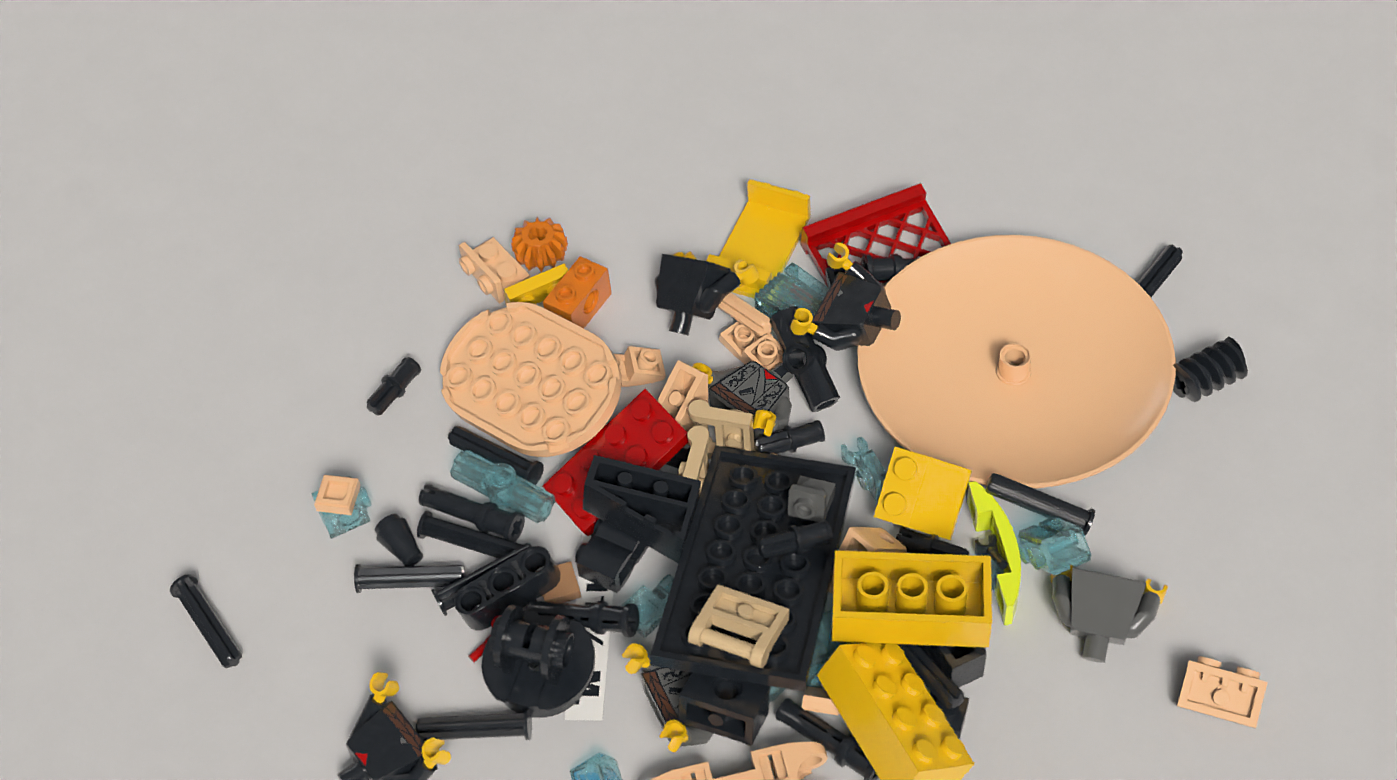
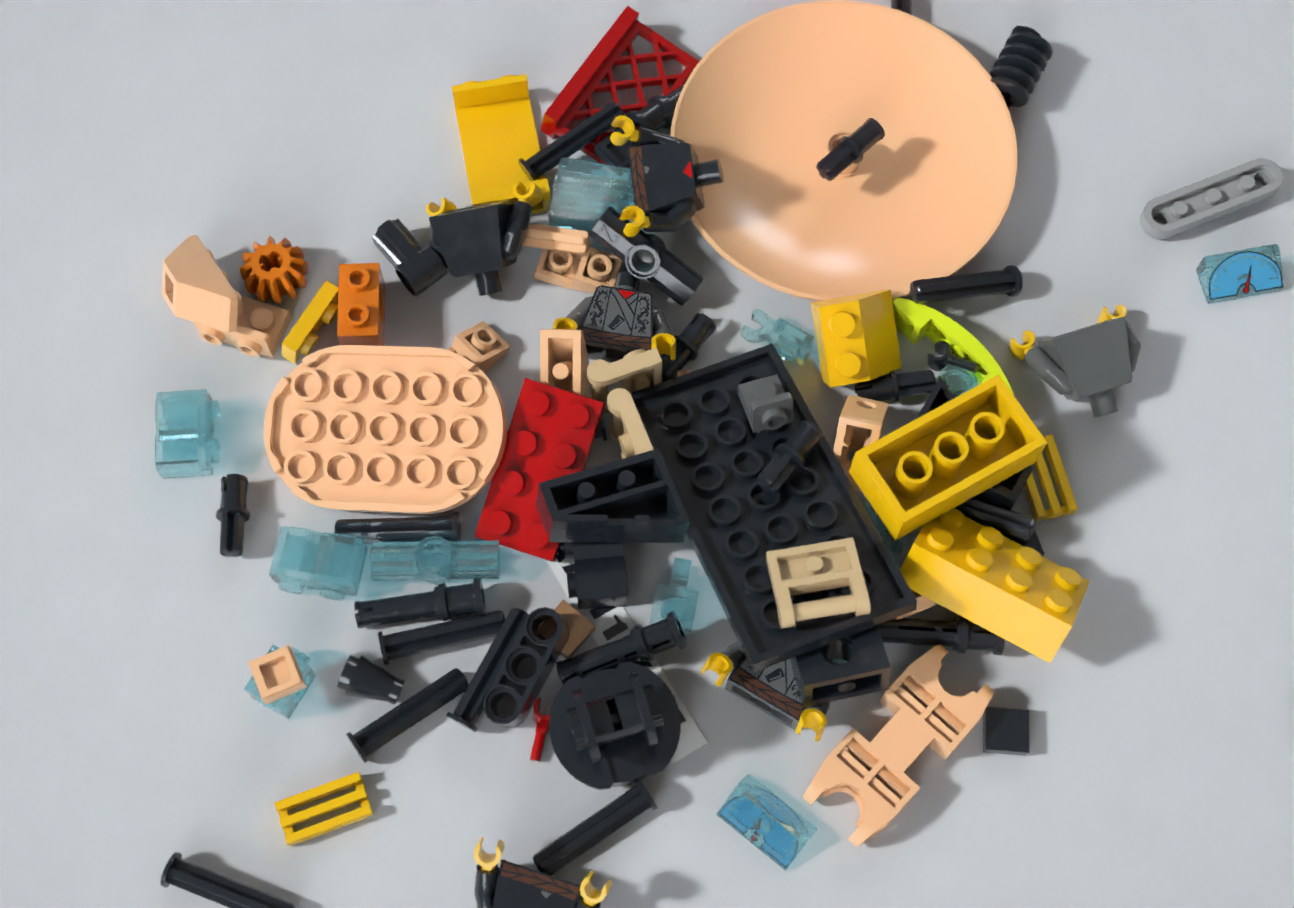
camera: 40 degrees left, 15 degrees up
(310, 601) = (287, 821): none -> yellow tile
(401, 318) = (186, 433): none -> clear light blue brick
(423, 445) = (318, 562): none -> clear light blue brick
(476, 224) = (198, 288): none -> light nougat slope
(638, 283) = (414, 264): none -> black piece
(807, 257) = (570, 142): none -> black axle
(1012, 652) = (1061, 481): none -> yellow tile
(1014, 357) = (850, 149): none -> black axle
(1053, 546) = (1014, 323): clear light blue brick -> none
(1222, 693) = (1235, 382): light nougat bracket -> none
(1295, 616) = (1241, 273): none -> slope
(1310, 546) = (1211, 198): none -> light grey plate

